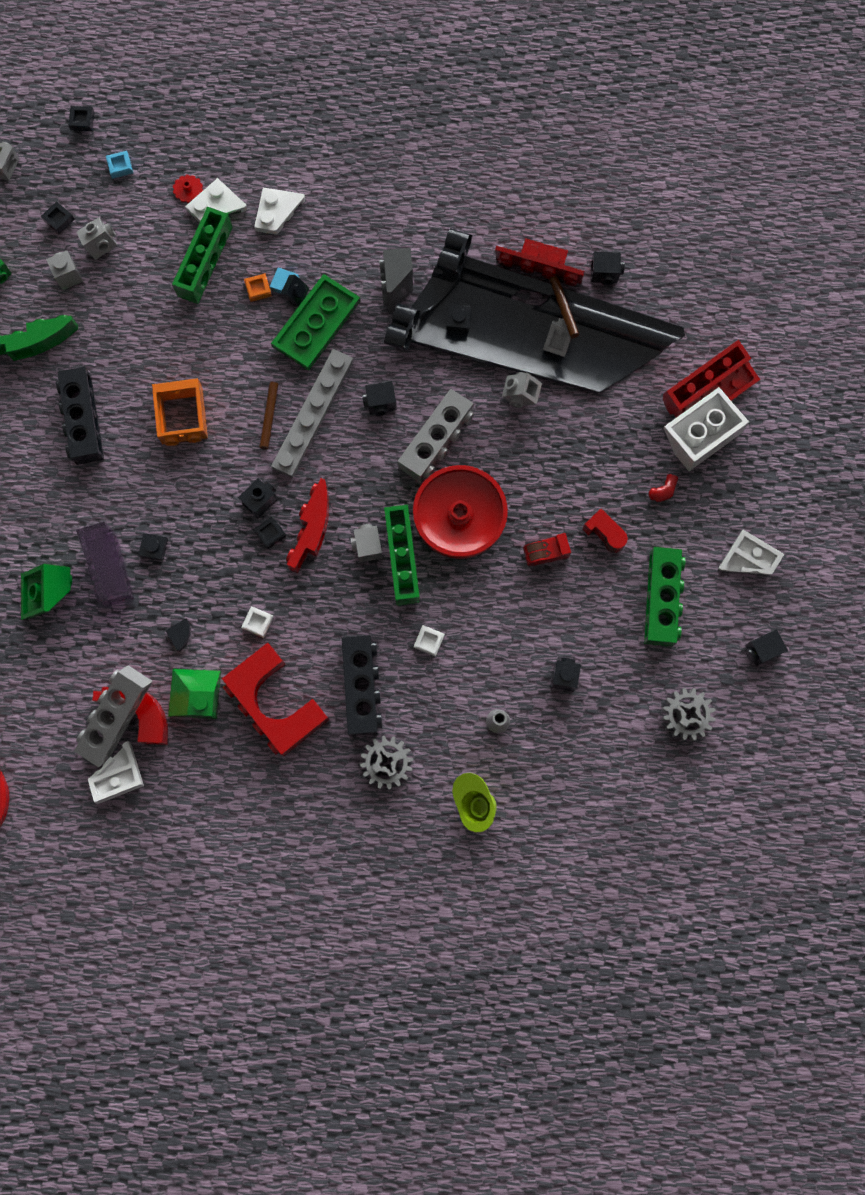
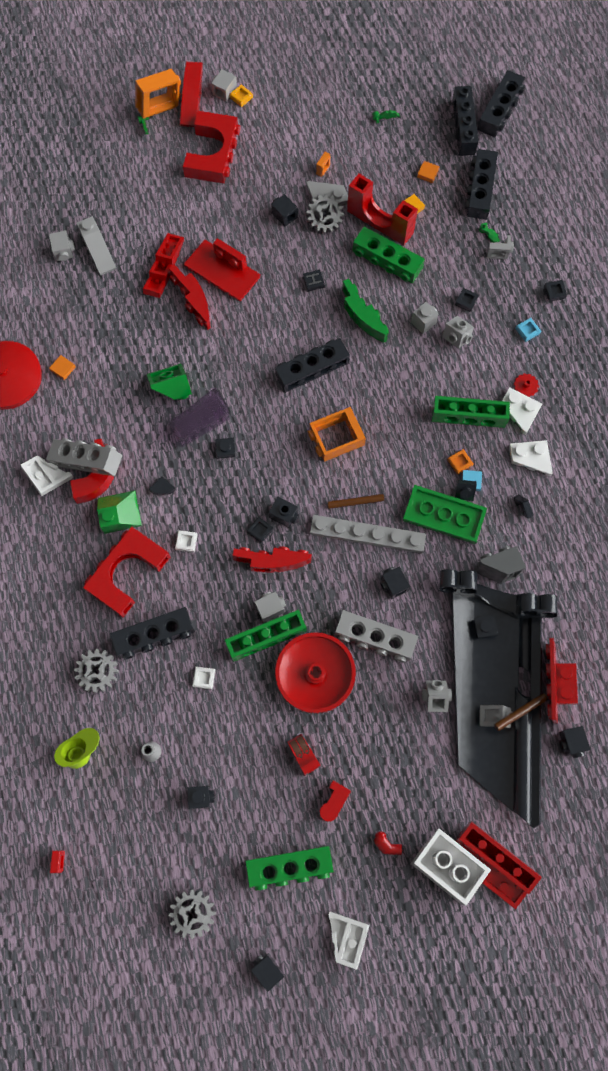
camera: 75 degrees right, 5 degrees down
(332, 234) = (525, 505): none -> black tile
(596, 854) = (57, 861): none -> red tile

